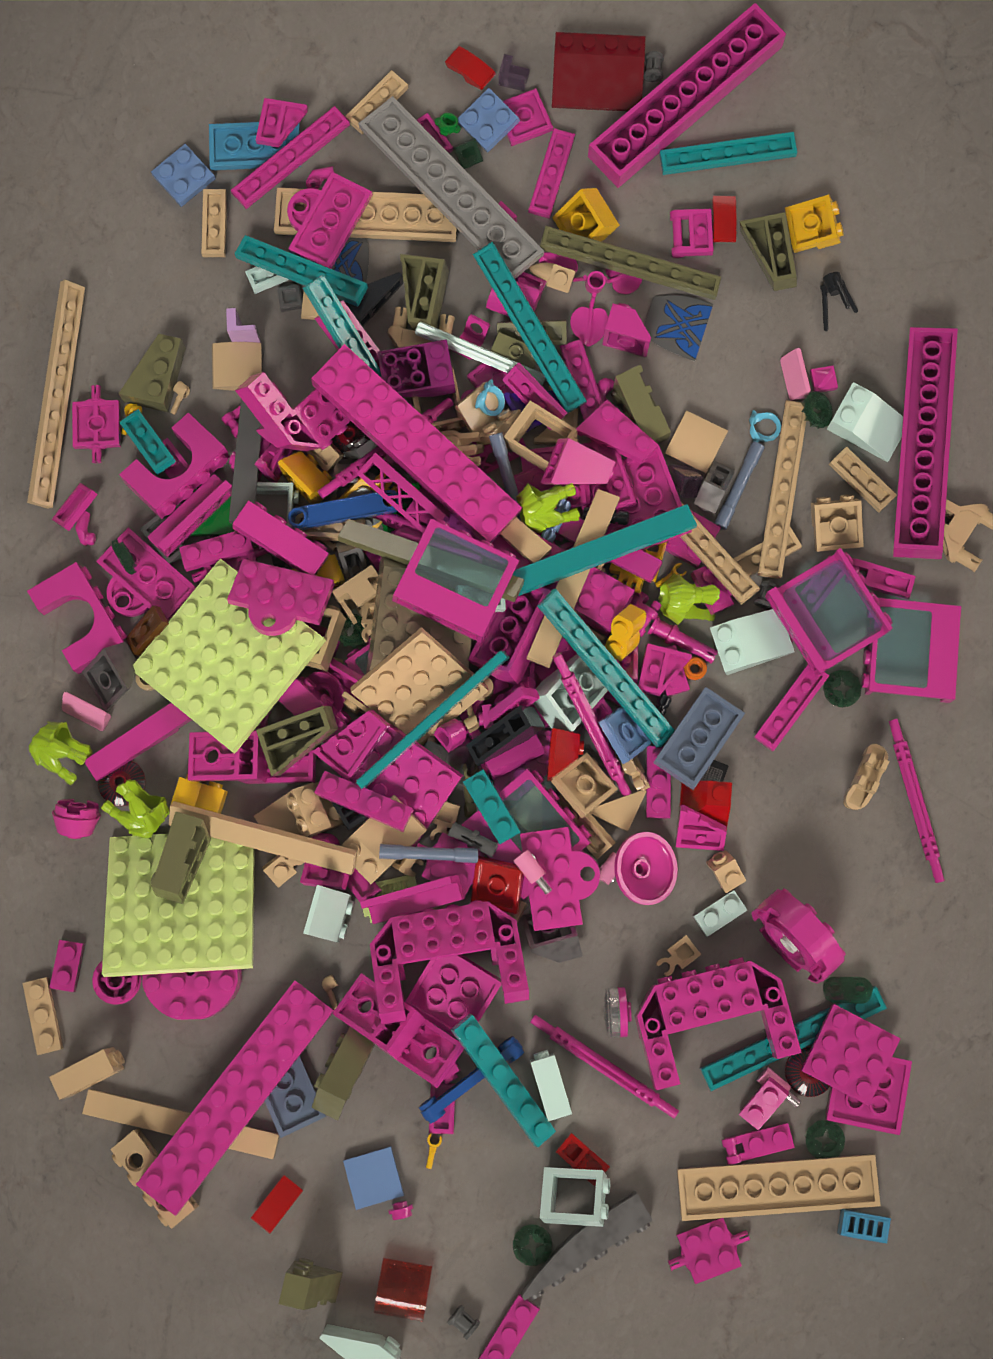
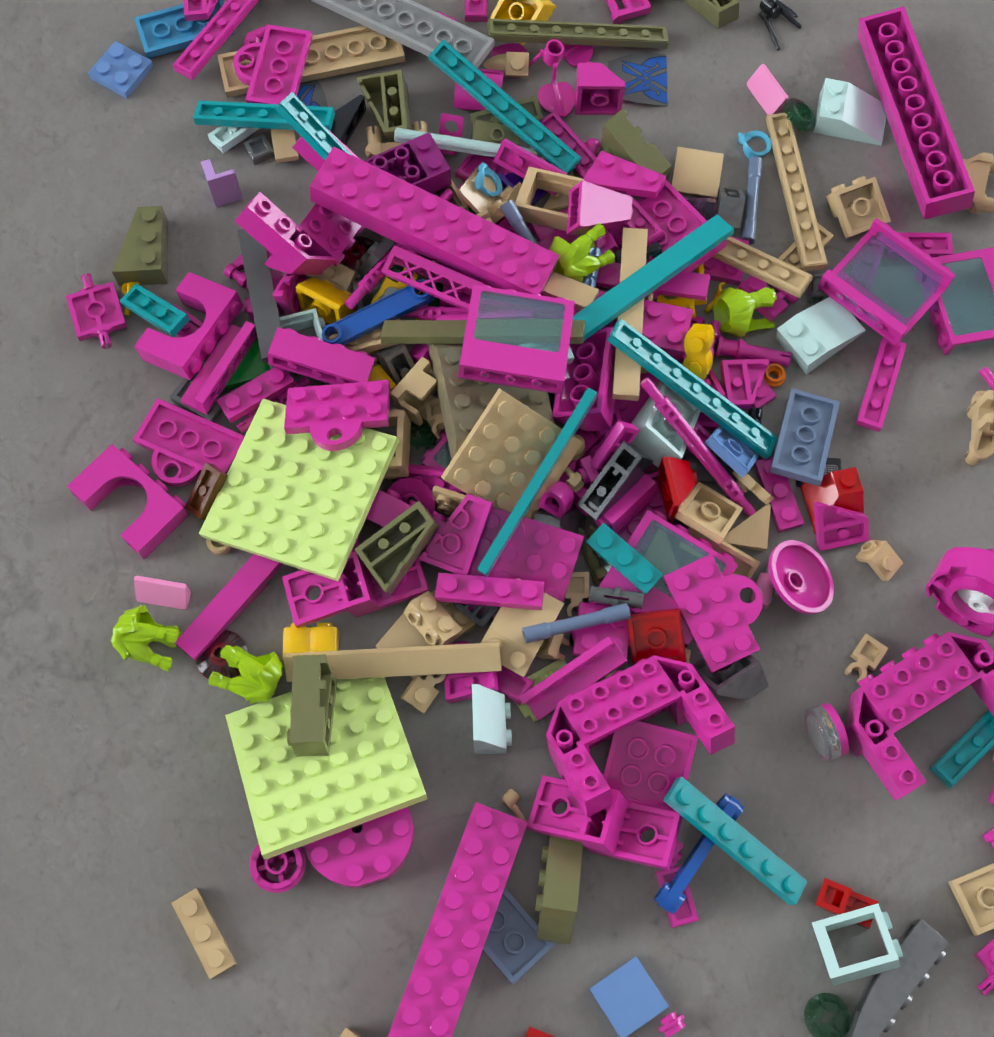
camera: 20 degrees left, 10 degrees down
(56, 394) = (47, 296): tan plate -> none
(67, 966) = (216, 869): dark pink plate -> none
(74, 506) = (95, 394): dark pink tile -> none
(75, 818) = (183, 704): dark pink cone -> none
(82, 530) = (108, 413): dark pink arm -> none
(87, 1072) = (273, 978): tan window -> none
(111, 673) = (179, 546): flat silver slope -> none
(124, 556) = (162, 422): clear green gear -> none
(169, 1120) = (380, 1007): tan tile -> none
(182, 391) = (177, 259): tan hand -> none
(214, 223) = (164, 101): tan plate -> none
(234, 363) = (218, 218): tan slope -> none
(432, 1150) = (682, 945): yellow hand -> none
(532, 870) = (691, 606): bright pink piece -> none
(550, 1085) = (786, 831): light aqua window -> none
(604, 1066) = (832, 796): dark pink axle -> none
(720, 913) = (889, 603): light aqua plate -> none
(823, 379) = (795, 88): dark pink tile -> none
(836, 697) = (920, 363): clear green gear -> none
(862, 479) = (865, 163): tan plate -> none

